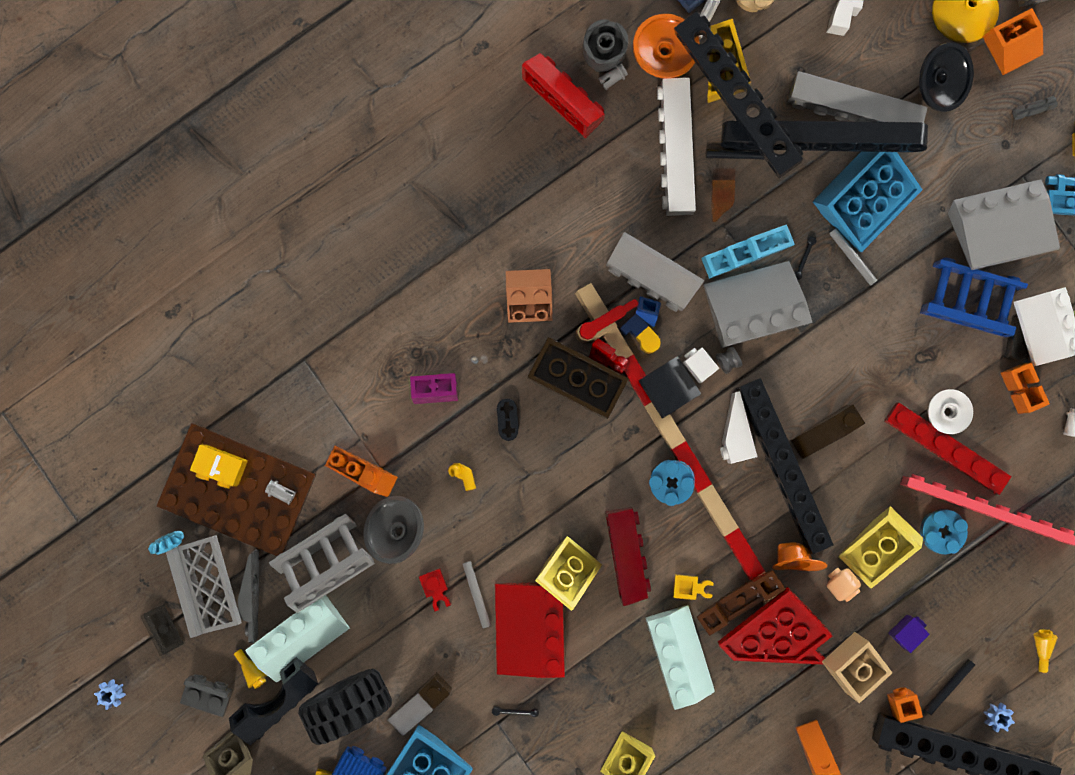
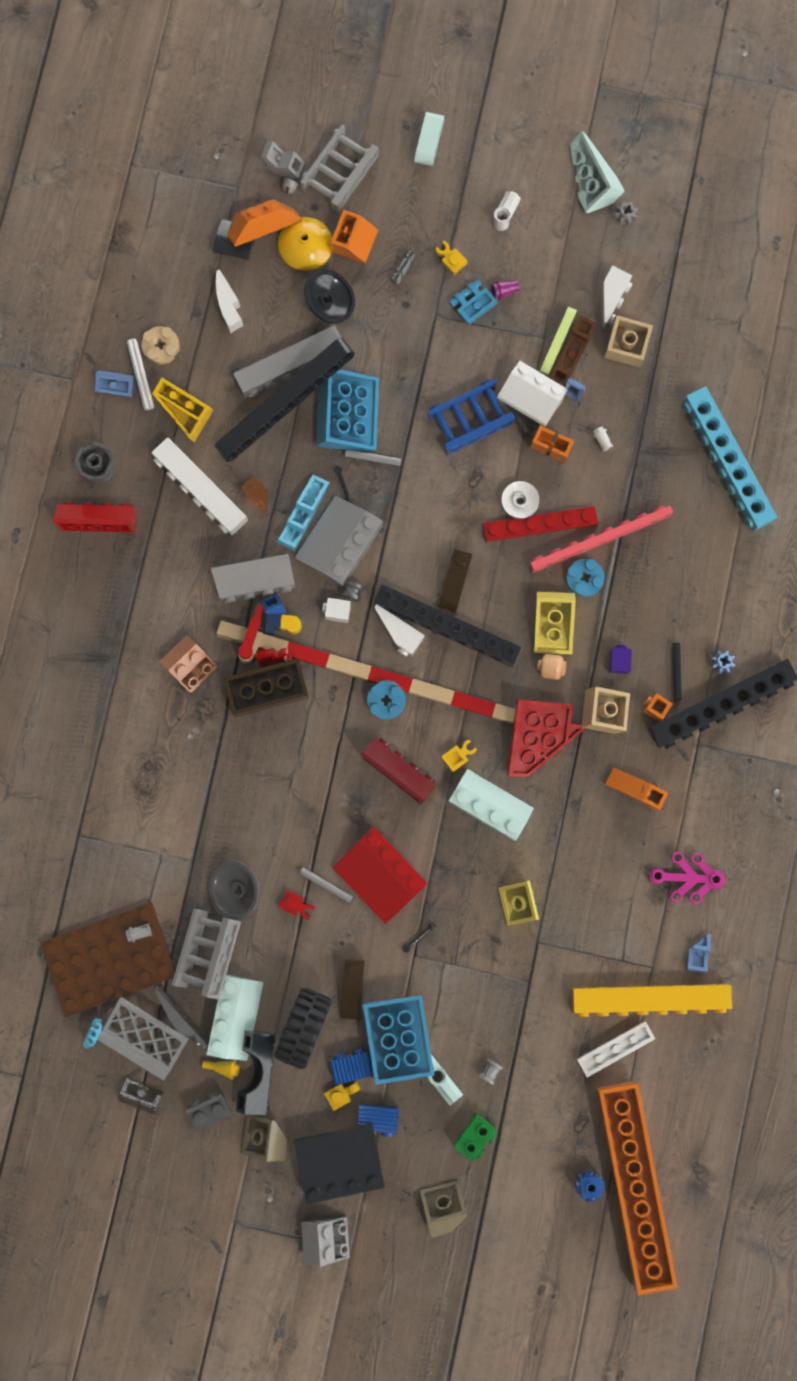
camera: 45 degrees left, 5 degrees down
(103, 697) = (148, 1165): light blue gear -> none
(218, 465) = (83, 951): yellow brick -> none
(361, 471) = (180, 873): orange slope -> none
(434, 388) = (180, 777): magenta hinge -> none
(463, 473) = (247, 815): yellow arm -> none
(502, 419) = (242, 758): black beam -> none
(568, 572) = (369, 813): light yellow slope -> none
(613, 76) = (118, 478): light grey pin -> none
(658, 35) = (130, 421): orange dish -> none
(669, 387) = (330, 641): black slope -> none
(699, 25) = (141, 411): black brick -> none
(734, 154) = (244, 456): black bar -> none
(739, 601) = (497, 736): reddish brown slope -> none
(796, 557) = (508, 676): orange piece -> none
(1005, 224) = (447, 355): light grey slope -> none
(1045, 643) = (710, 591): yellow cone -> none

